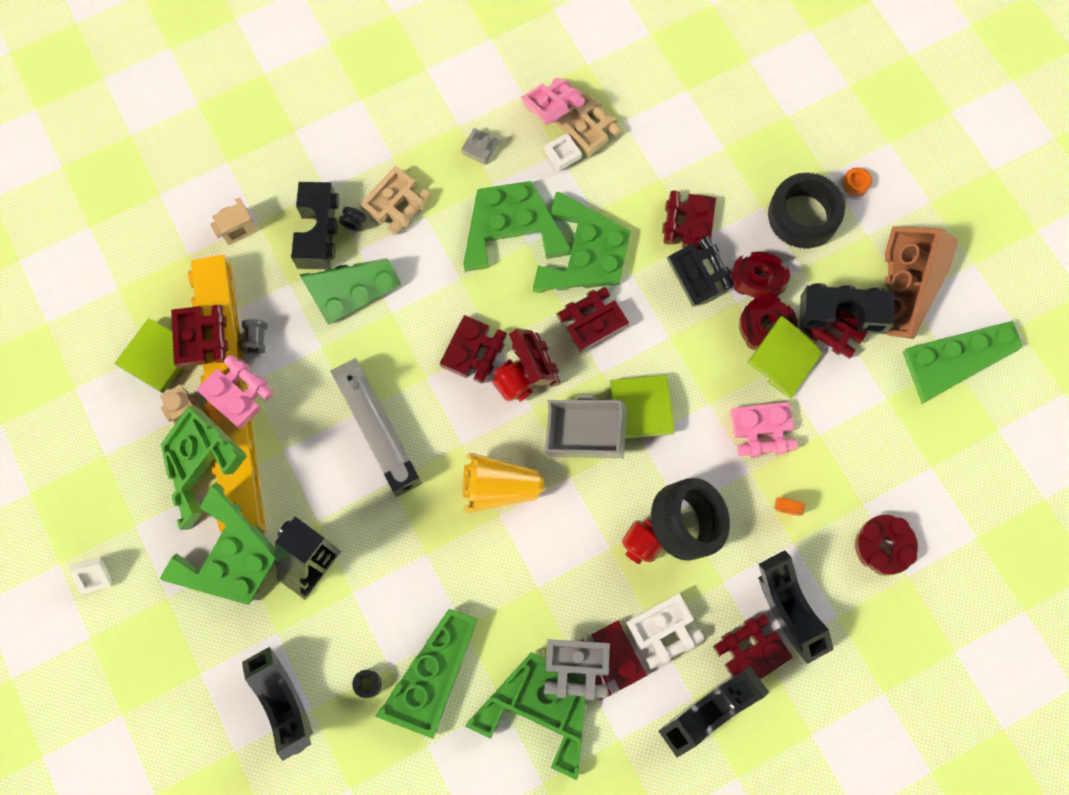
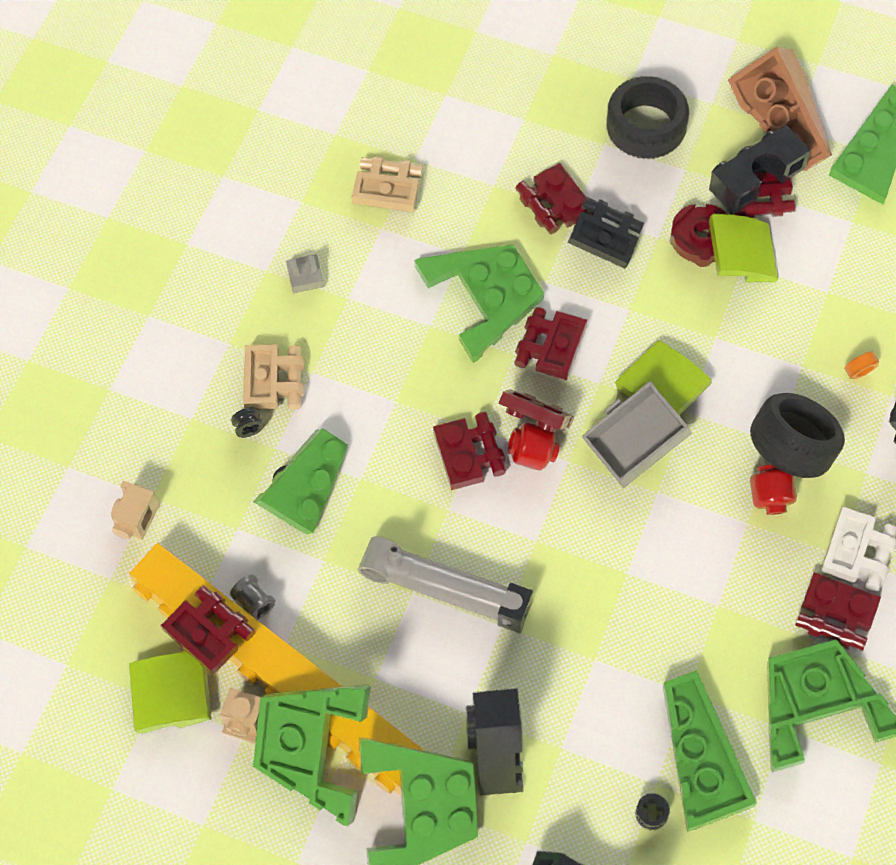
camera: 40 degrees left, 10 degrees down
(228, 398) = (291, 662): bright pink plate -> none
(315, 247) = (202, 433): black arch -> none
(498, 484) = (602, 543): yellow cone -> none
(510, 213) = (389, 309): bright green wing -> none
(552, 101) = (340, 184): bright pink plate -> none
(563, 152) = (388, 222): white plate -> none
(577, 658) = (816, 624): light grey plate -> none
(748, 282) = (675, 198): dark red plate -> none
(763, 420) = (773, 315): bright pink plate -> none
(857, 181) = (663, 65): orange tile -> none

